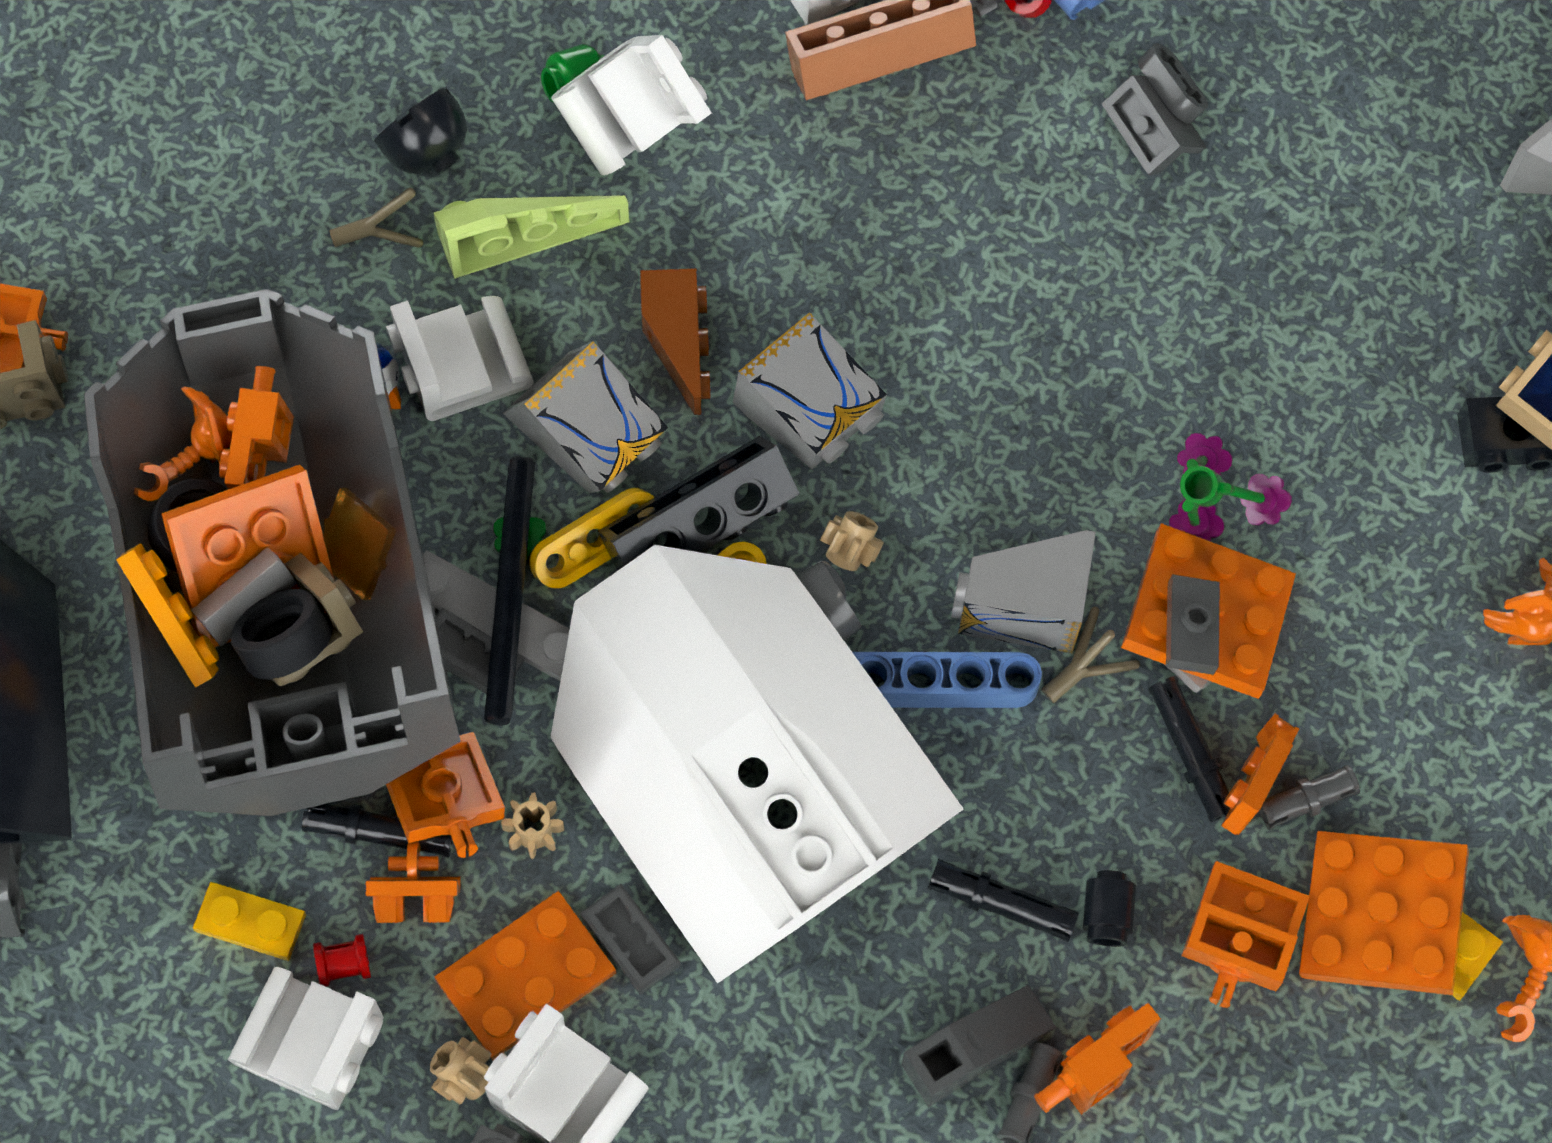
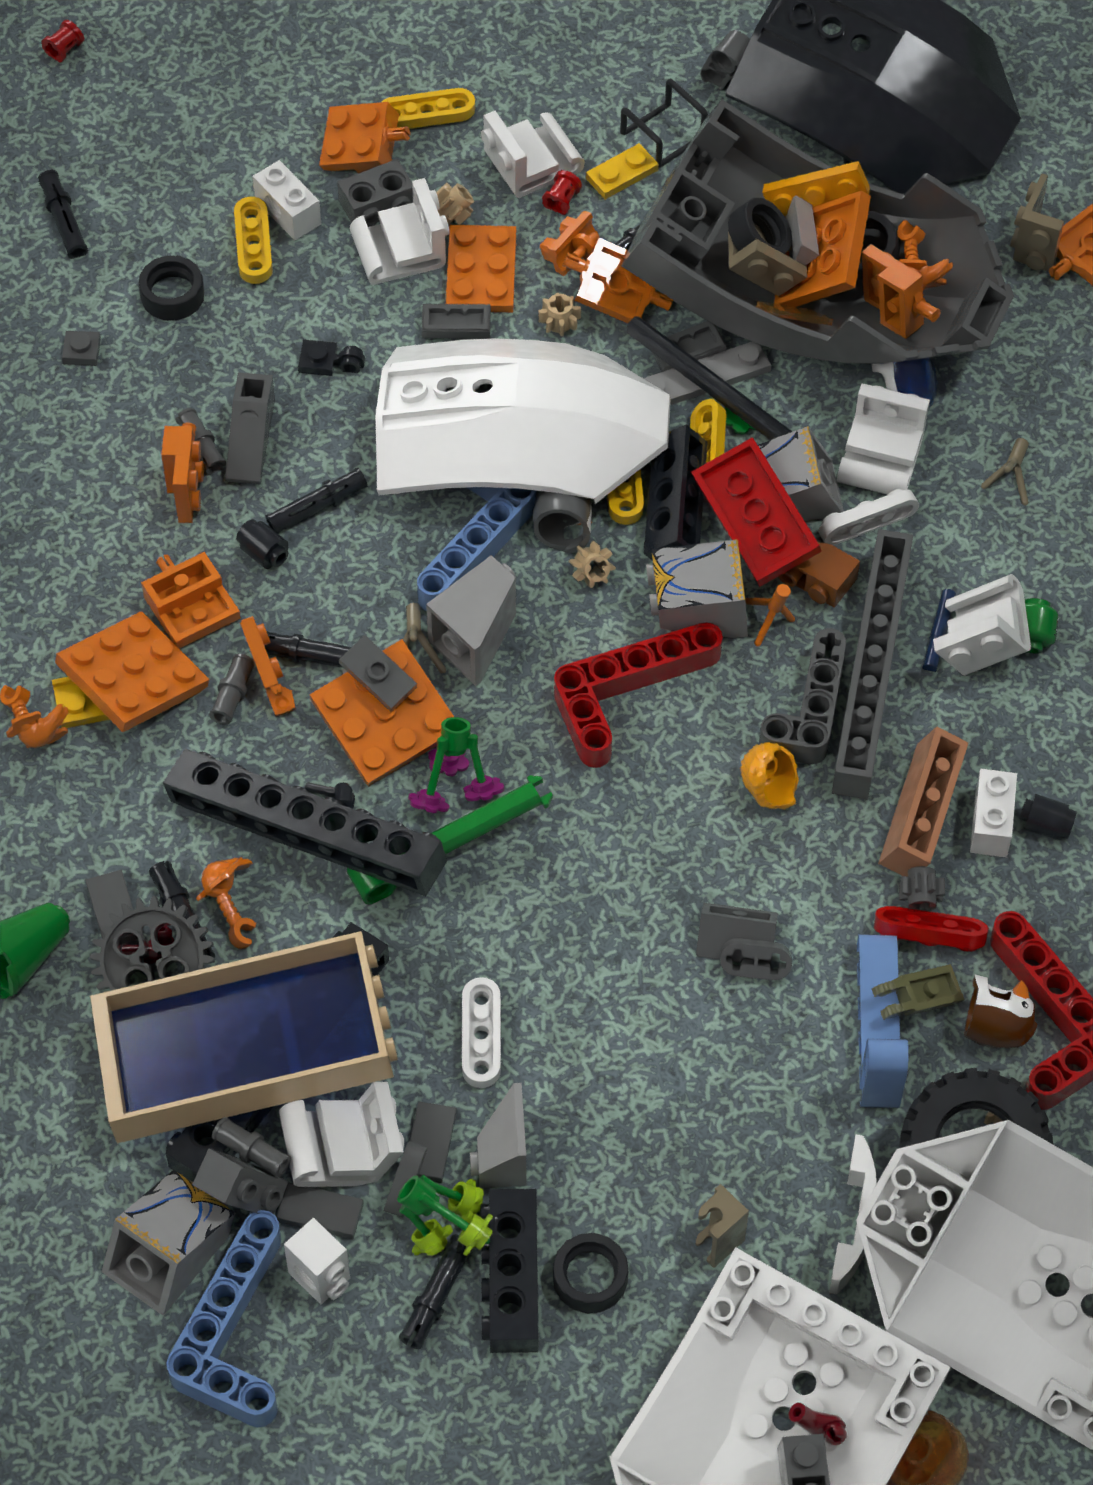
camera: 130 degrees right, 10 degrees down
(196, 886) = (625, 112): none -> black piece
(426, 135) = (1049, 514): black cylinder -> none
(505, 229) = (955, 519): yellowish green wedge -> none
(561, 314) = (868, 516): none -> white plate
(646, 169) = (938, 629): none -> dark blue piece
(673, 393) = (756, 511): none -> red plate
(751, 185) = (872, 665): none -> dark grey brick
(765, 312) = (775, 605): none -> orange plant
(802, 1058) = (321, 356): none -> black plate
(836, 224) = (817, 696): none -> dark grey beam
(966, 198) = (770, 775): none -> light orange hair
(968, 414) = (624, 678): none -> red beam
(1326, 592) = (341, 792): none -> black hand
(1390, 481) = (464, 831): none -> green piece
(1392, 409) = (217, 791): none -> black brick
(1469, 253) = (481, 1018): none -> white plate

